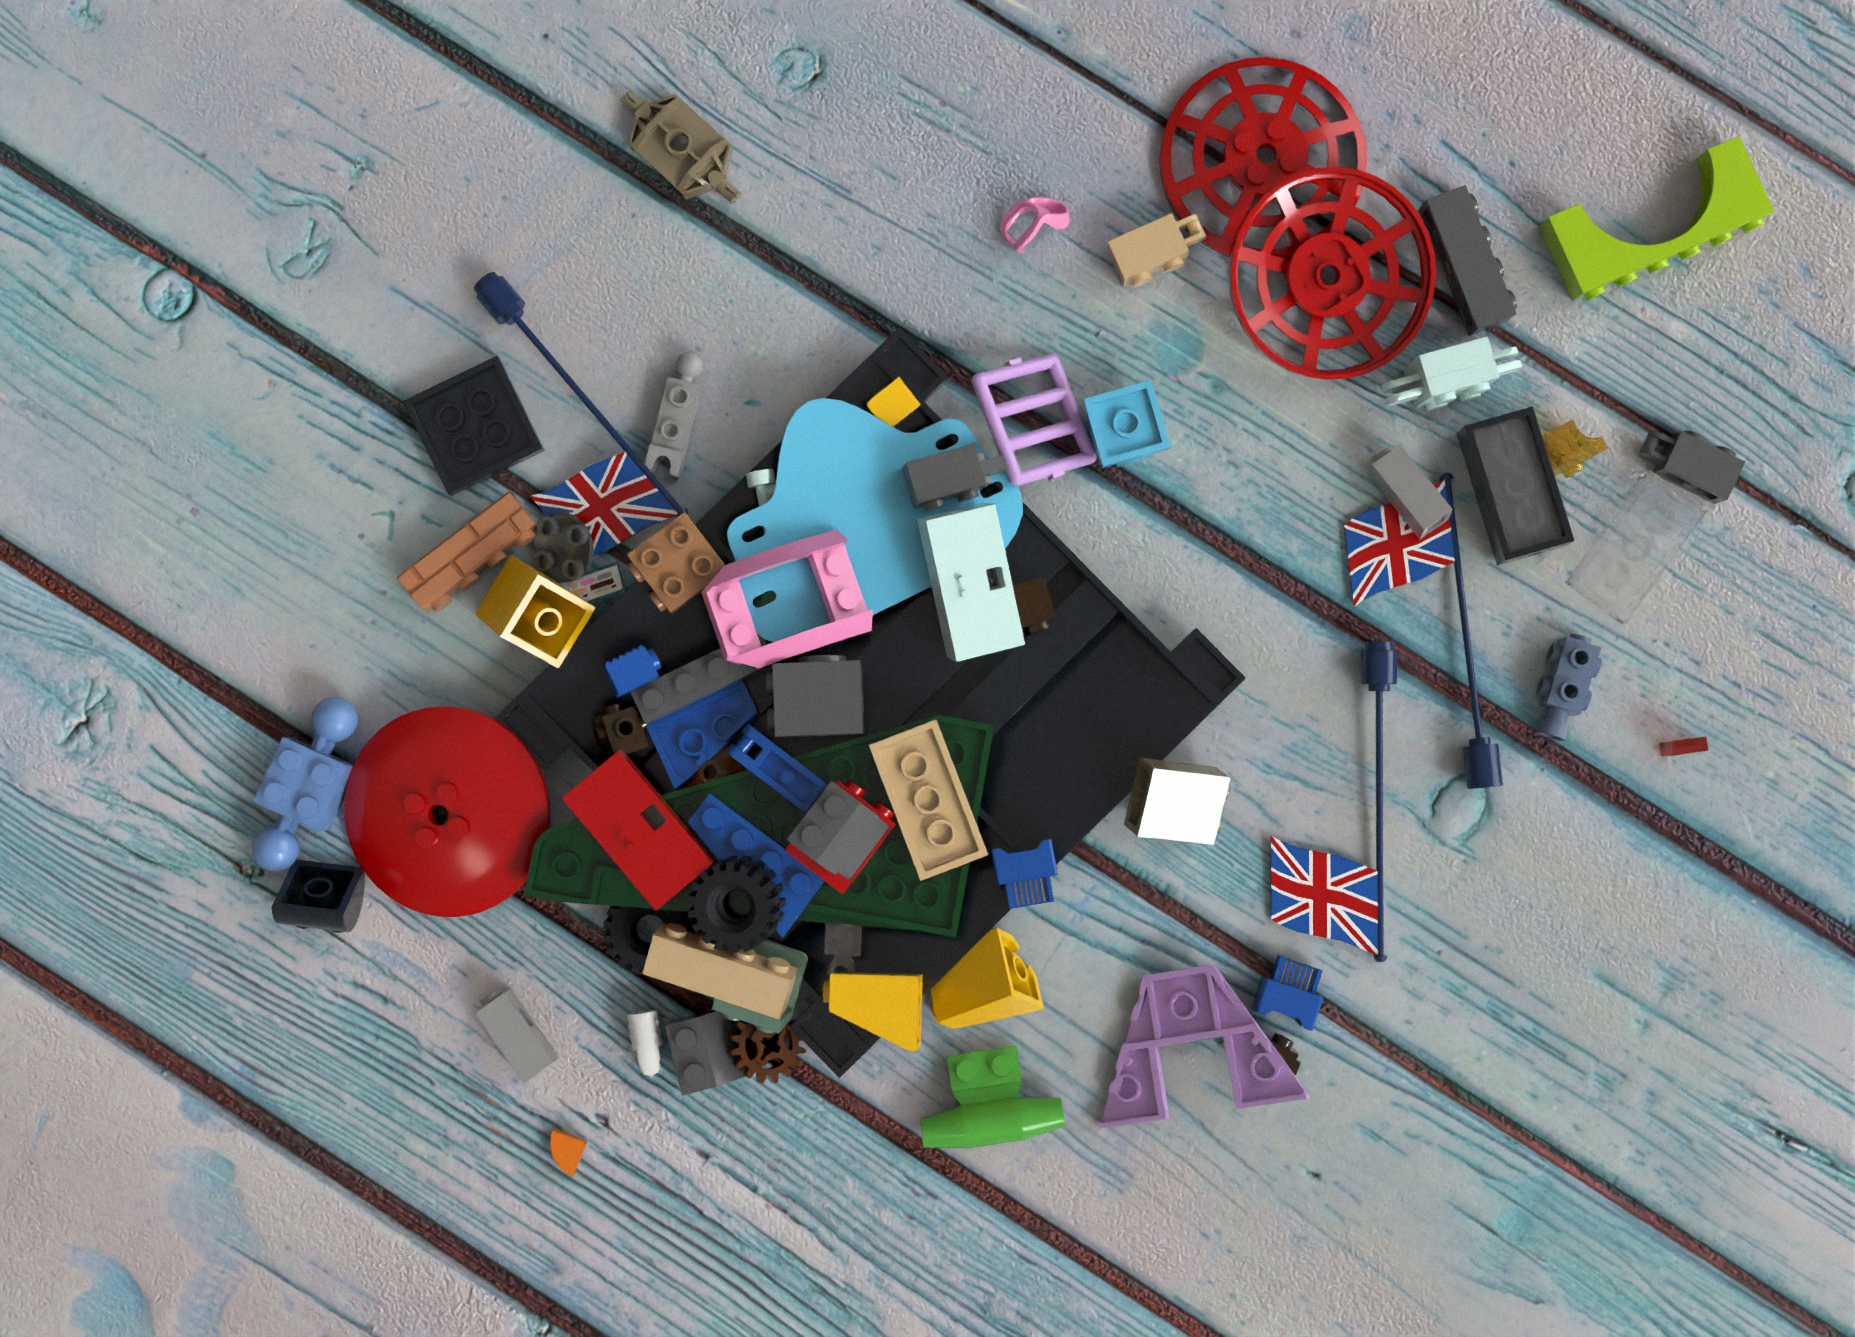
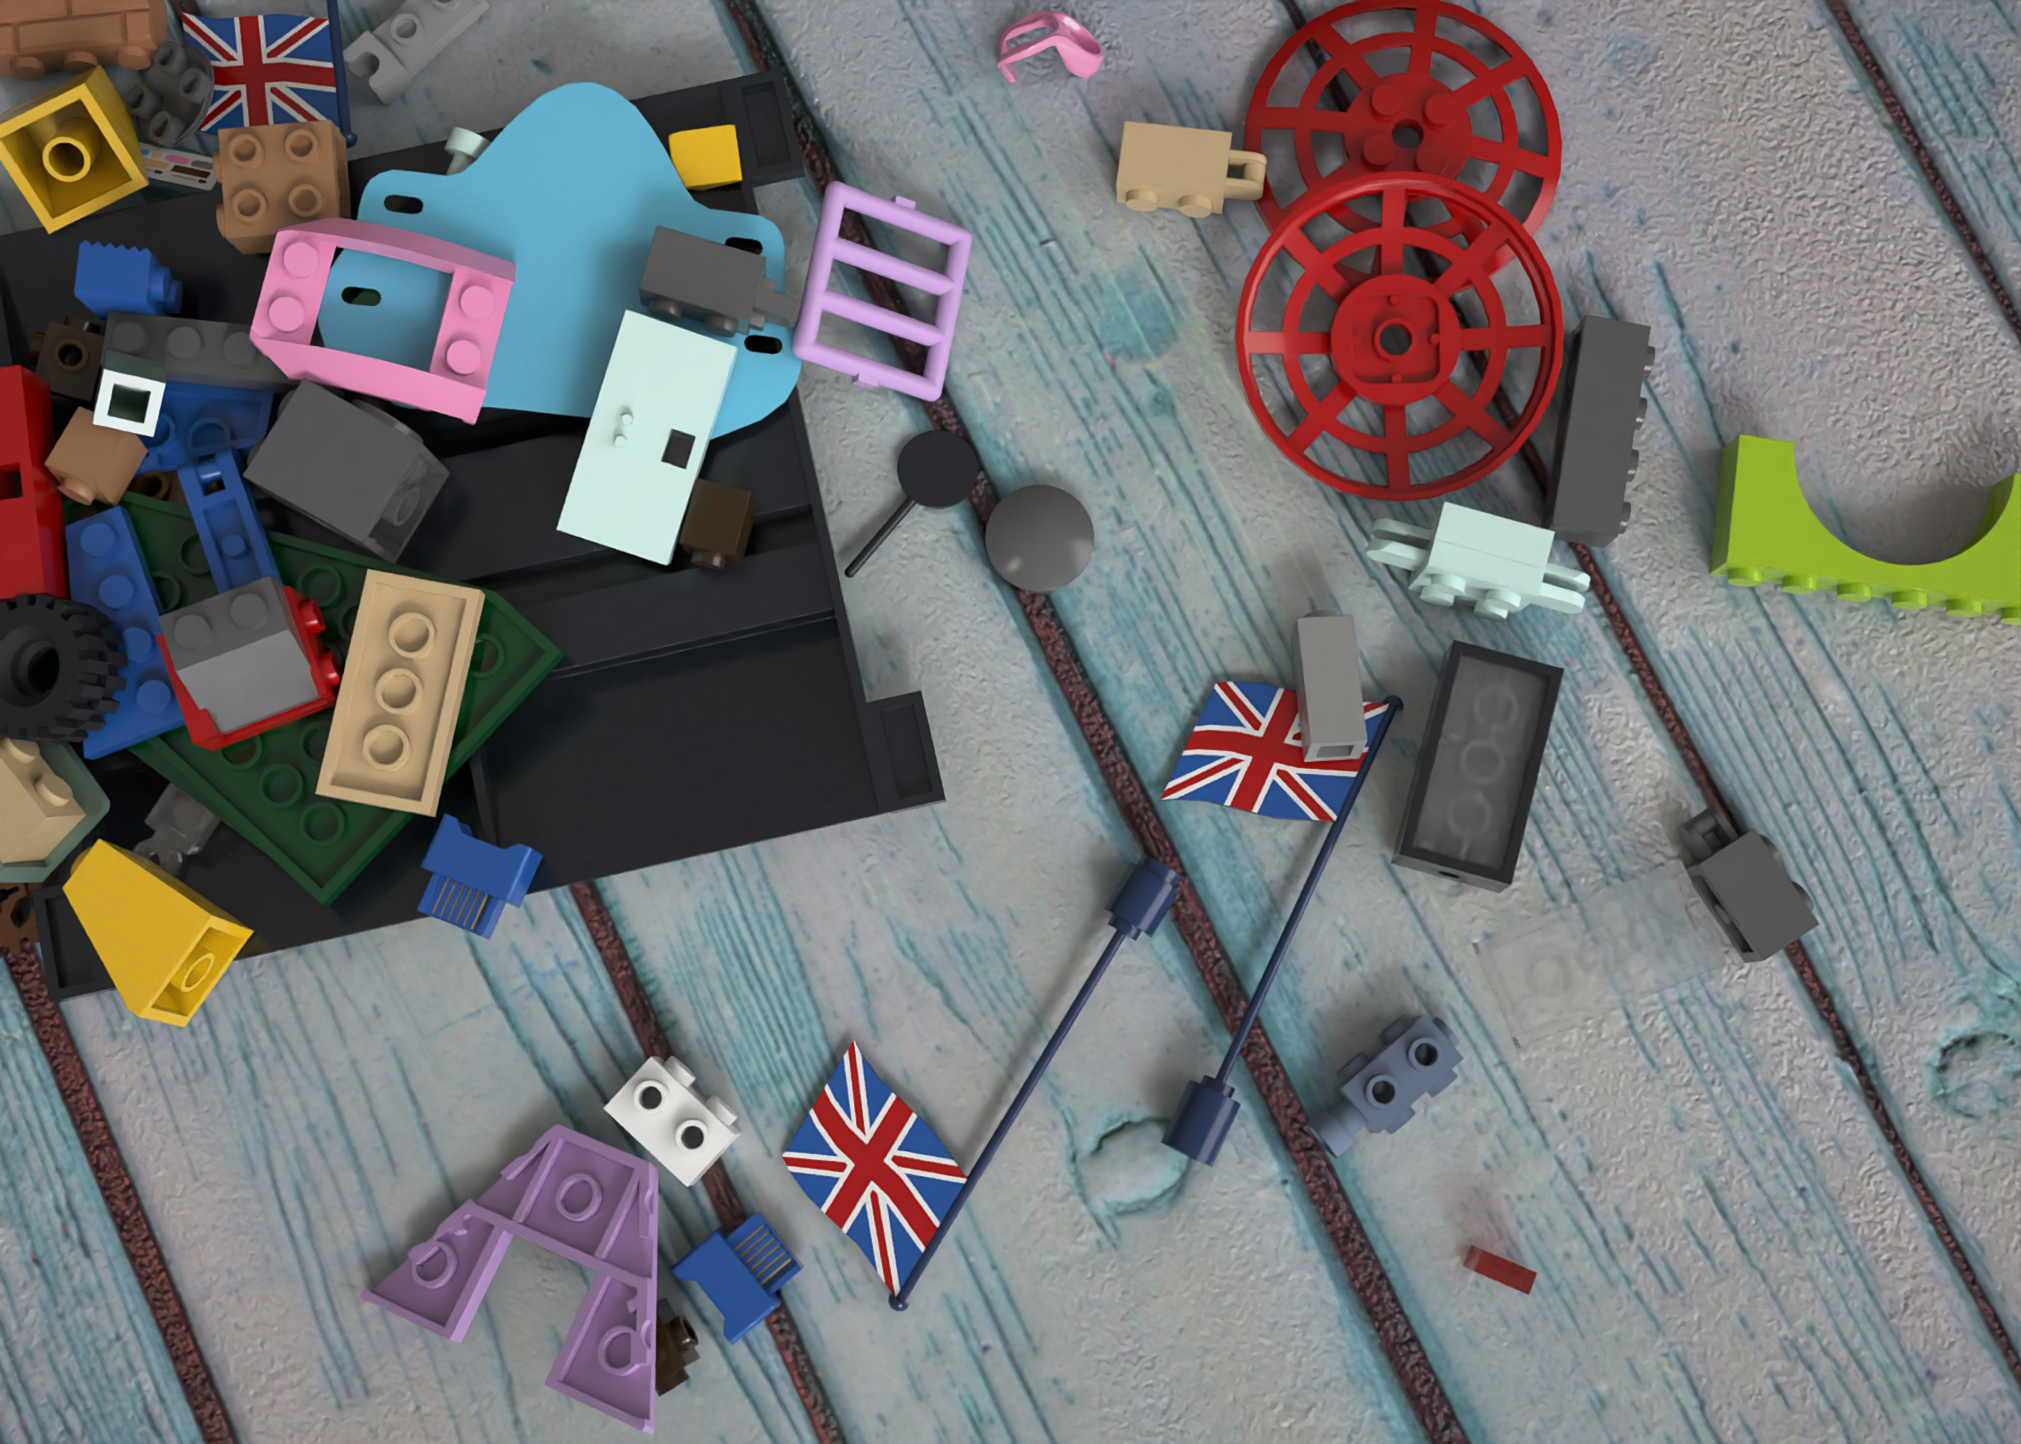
camera: 30 degrees right, 5 degrees down
(680, 729) = (129, 393): none -> sand green brick
(680, 776) = (95, 460): none -> medium nougat brick
(986, 985) = (336, 1001): yellow slope -> none
(990, 1111) = (232, 1176): bright green plate -> none
(1119, 501) = (933, 471): none -> black piece
(1126, 425) = (999, 371): medium azure panel -> none
(1177, 801) = (746, 909): brick -> none
(1201, 503) = (1039, 538): none -> dark grey dish
(1205, 935) = (674, 1118): none -> white brick
(1570, 448) = (1582, 763): clear yellow brick -> none

